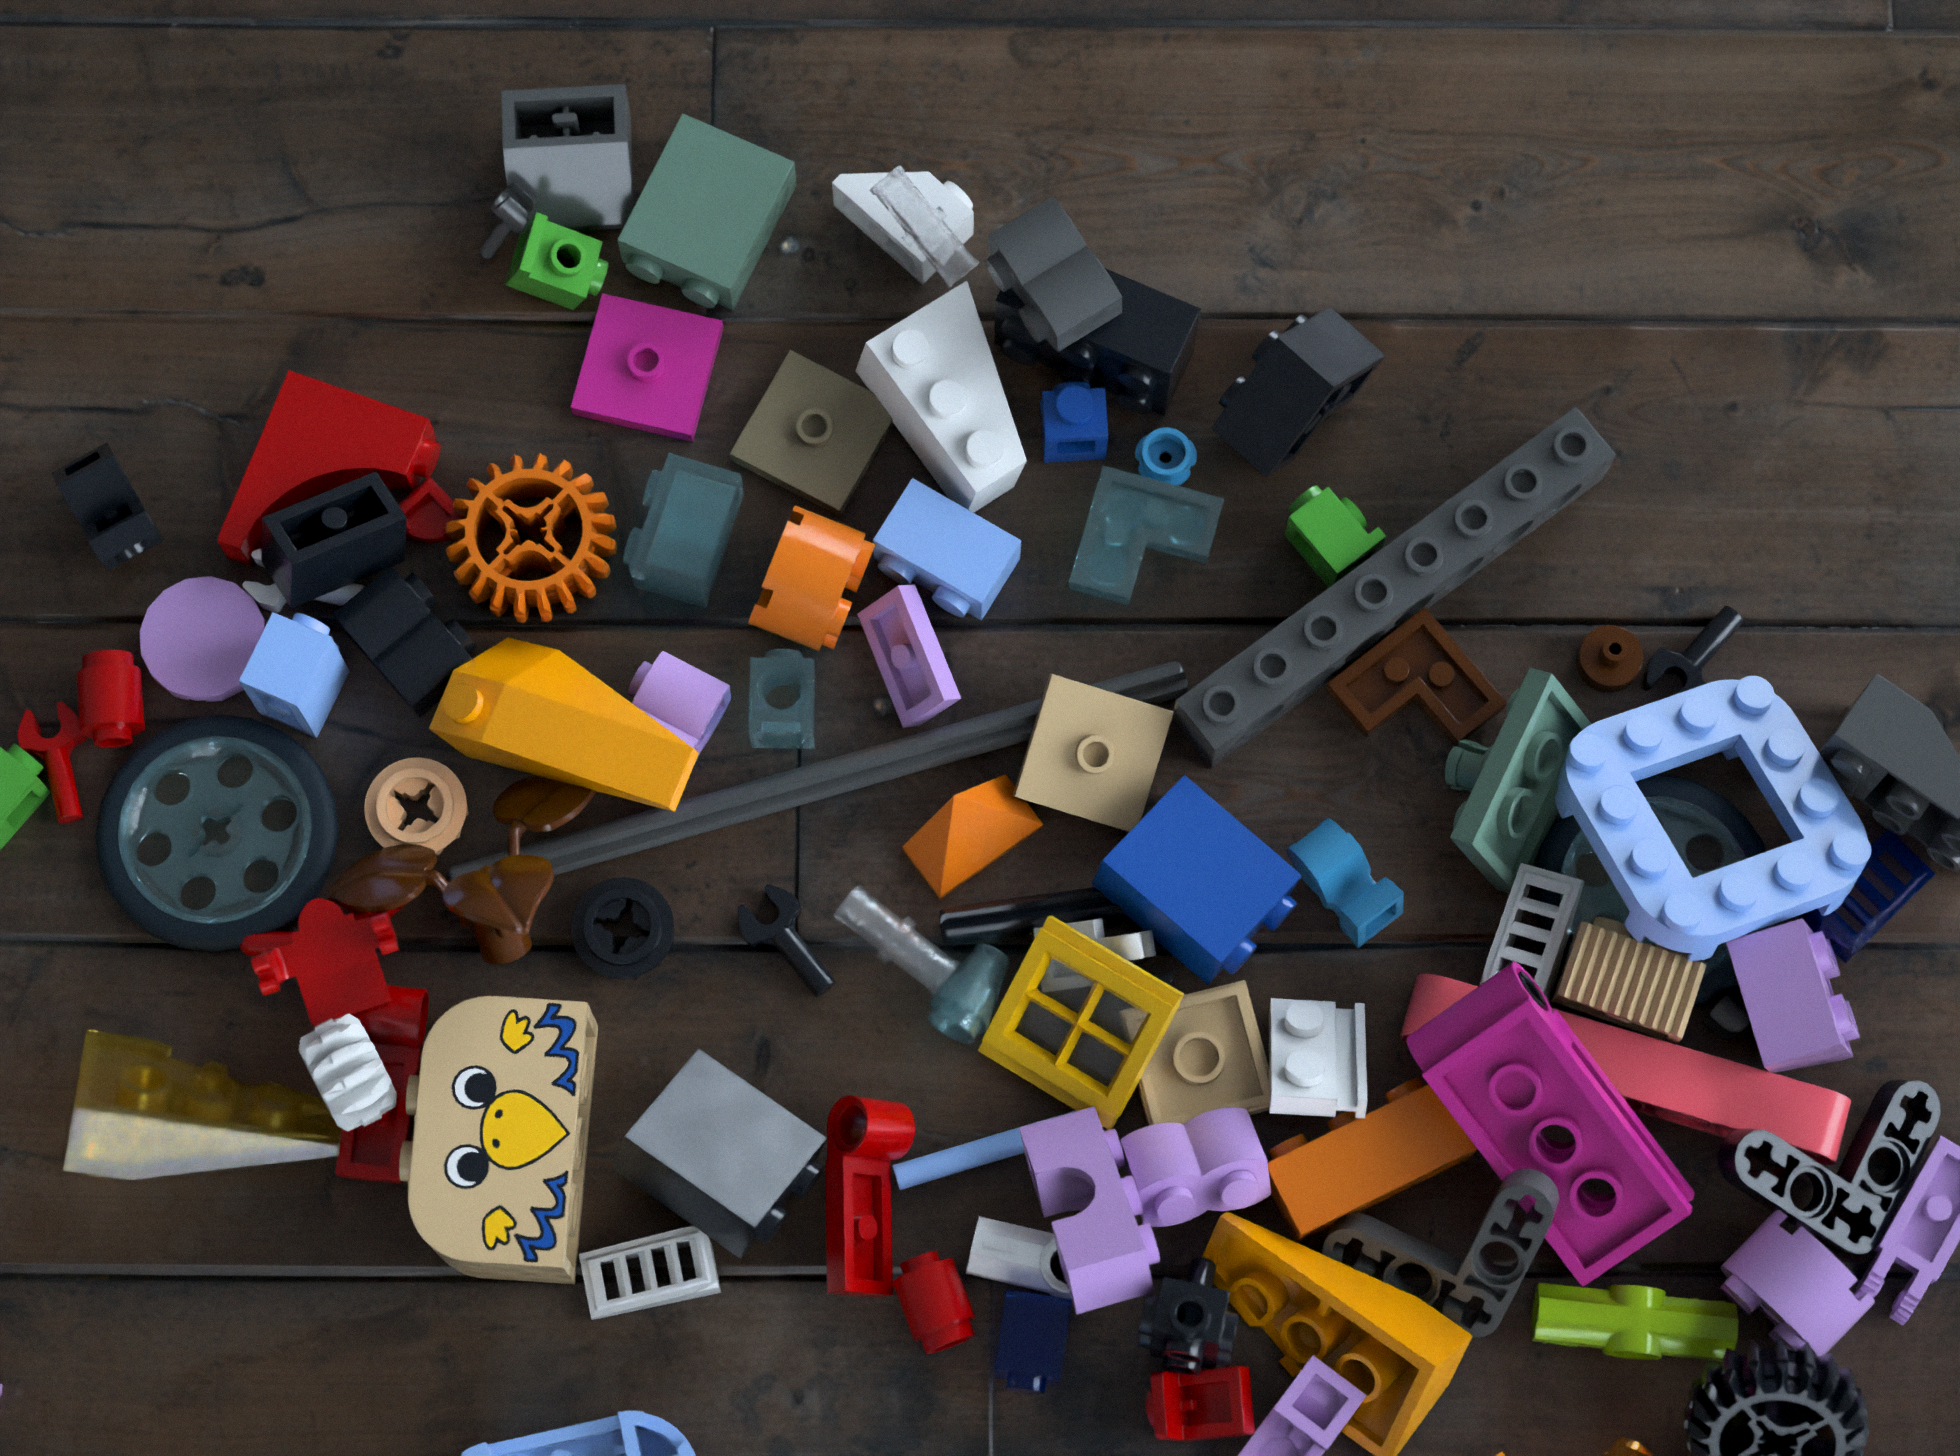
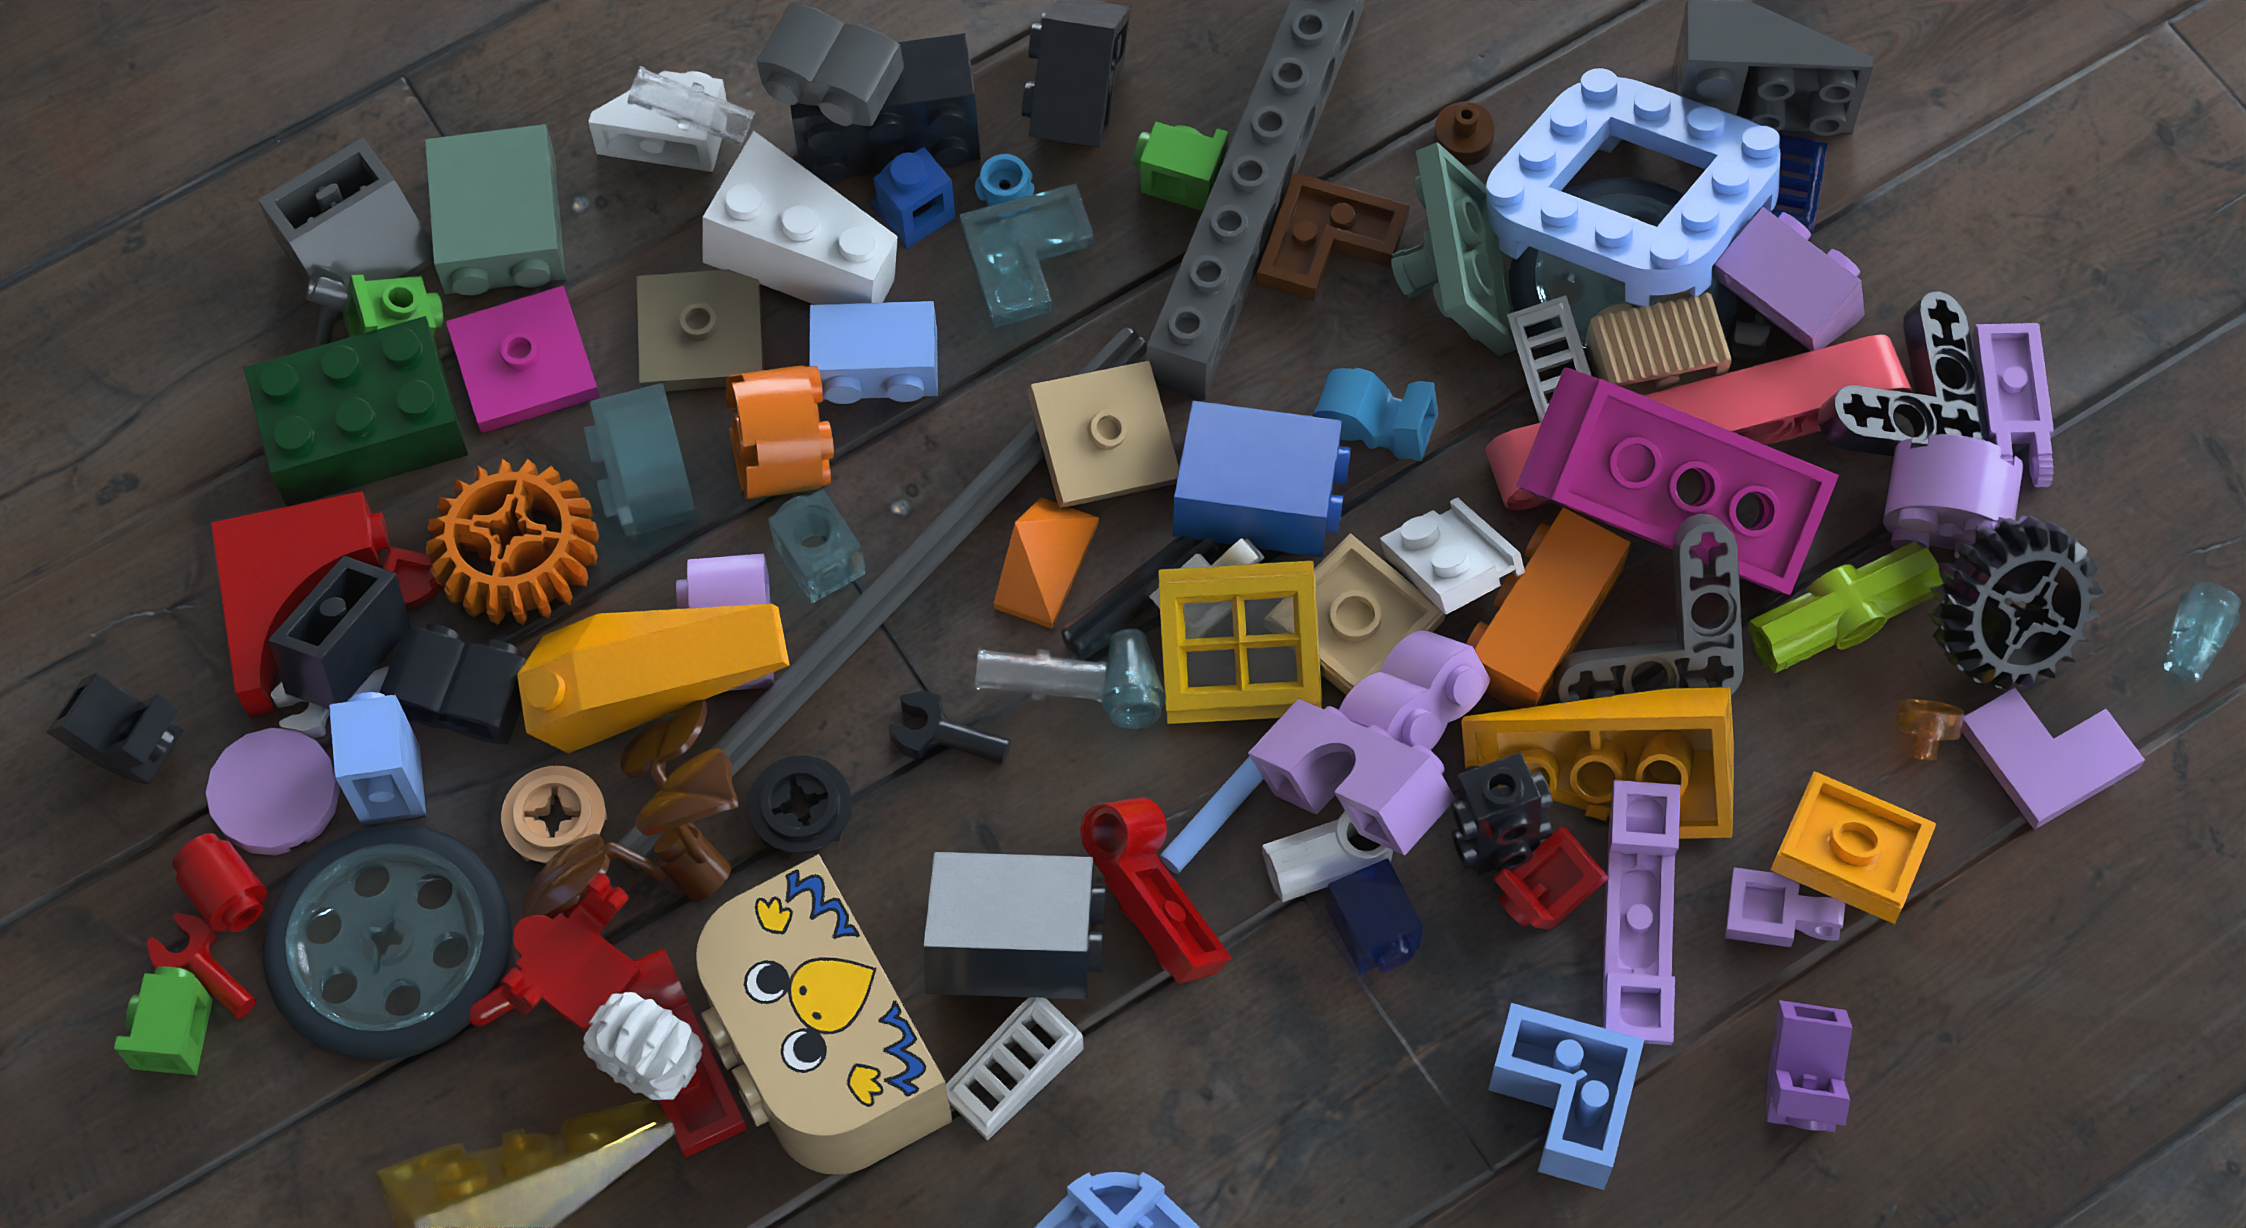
camera: 30 degrees left, 10 degrees down
(473, 334) = (355, 411): none -> dark green brick
(909, 655) = (898, 449): lavender plate -> none
(934, 1302) = (1272, 938): red brick -> none
(1690, 662) = (1528, 101): black bar -> none

